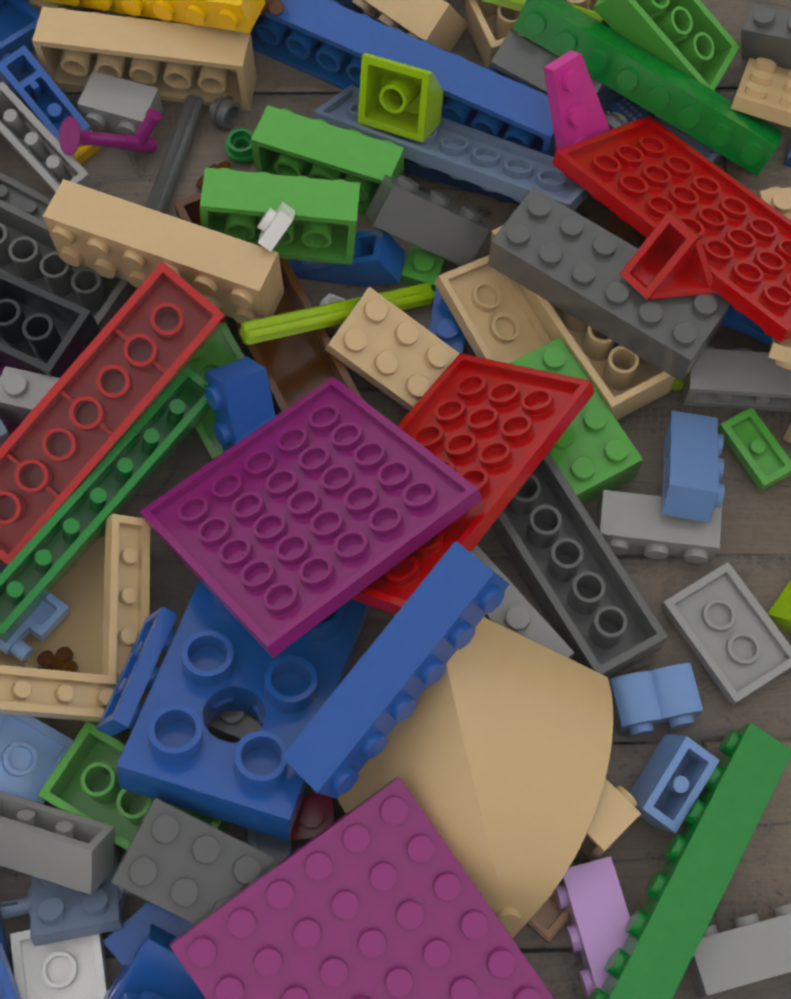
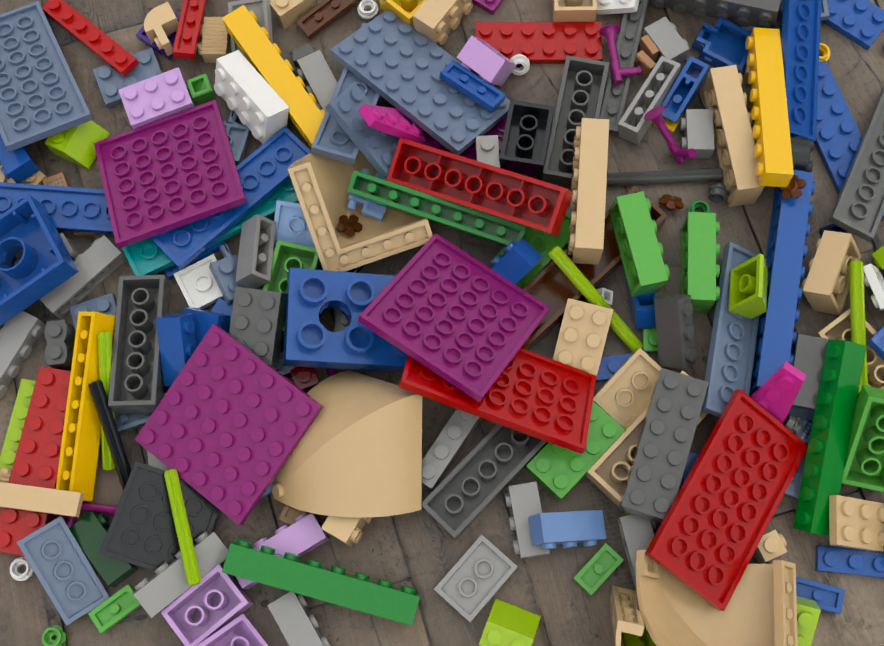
camera: 80 degrees right, 5 degrees up
(138, 672) = (345, 263): blue plate -> none
(274, 225) = (618, 241): white plate -> none
(395, 672) = (369, 385): blue brick -> none
(655, 698) = (423, 543): medium blue brick -> none
(670, 263) = (674, 473): red slope -> none
(672, 781) = (375, 561): medium blue brick -> none

